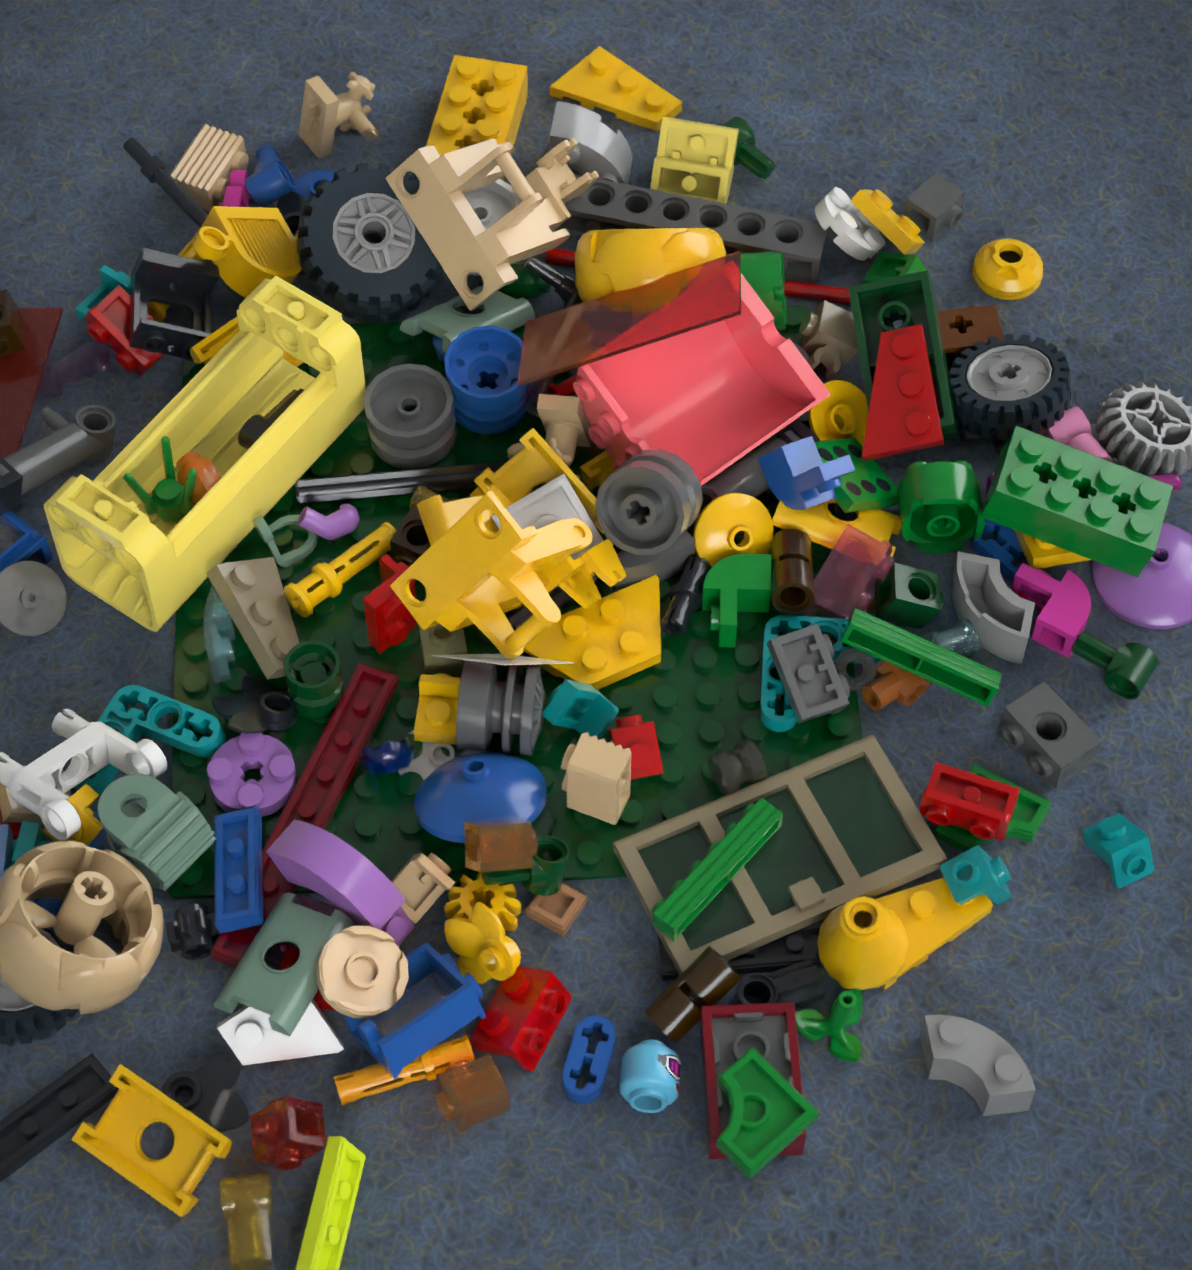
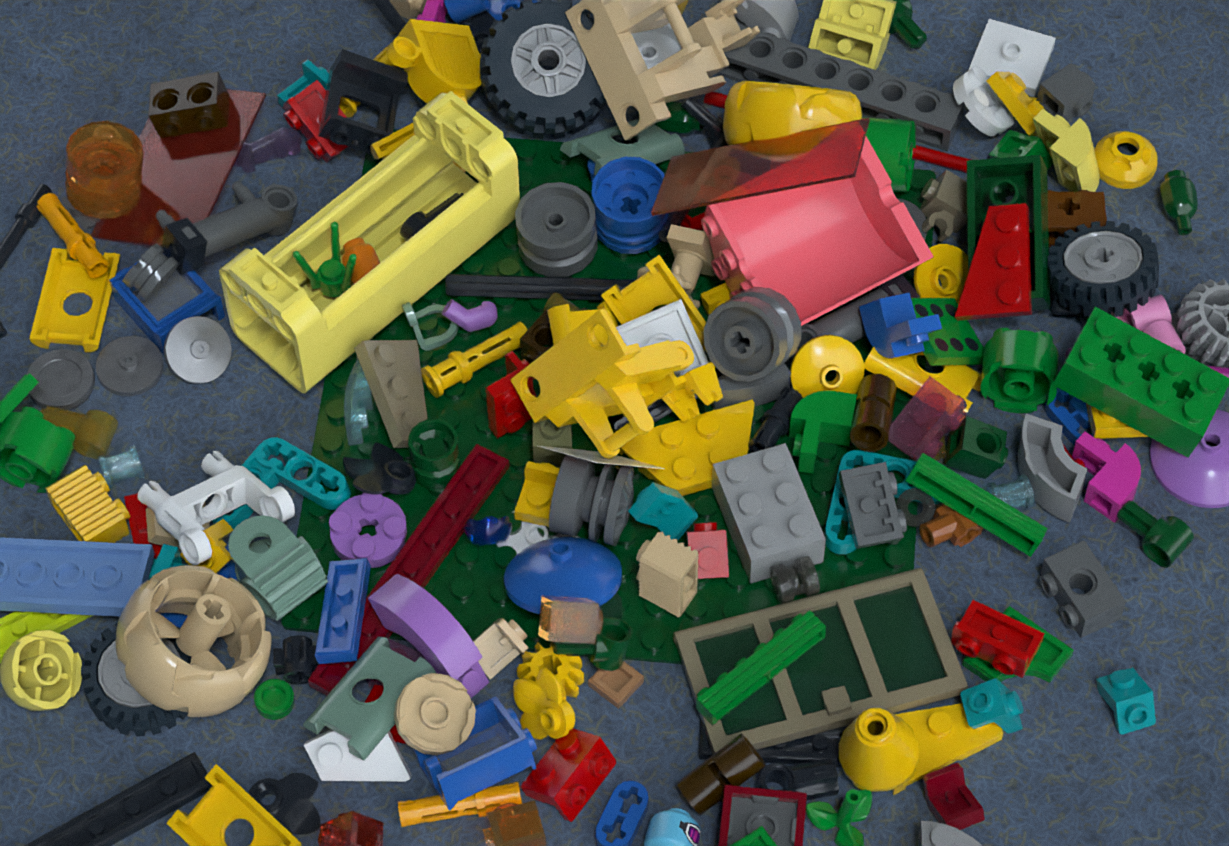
camera: 10 degrees right, 0 degrees up
(174, 980) = (274, 699): none -> green tile
(694, 695) = (767, 511): none -> light grey brick
(869, 166) = (1014, 50): none -> white plate
(949, 986) = (951, 798): none -> dark red bracket
(951, 265) = (1070, 150): none -> light yellow brick
(1074, 304) = (1179, 199): none -> dark green plant

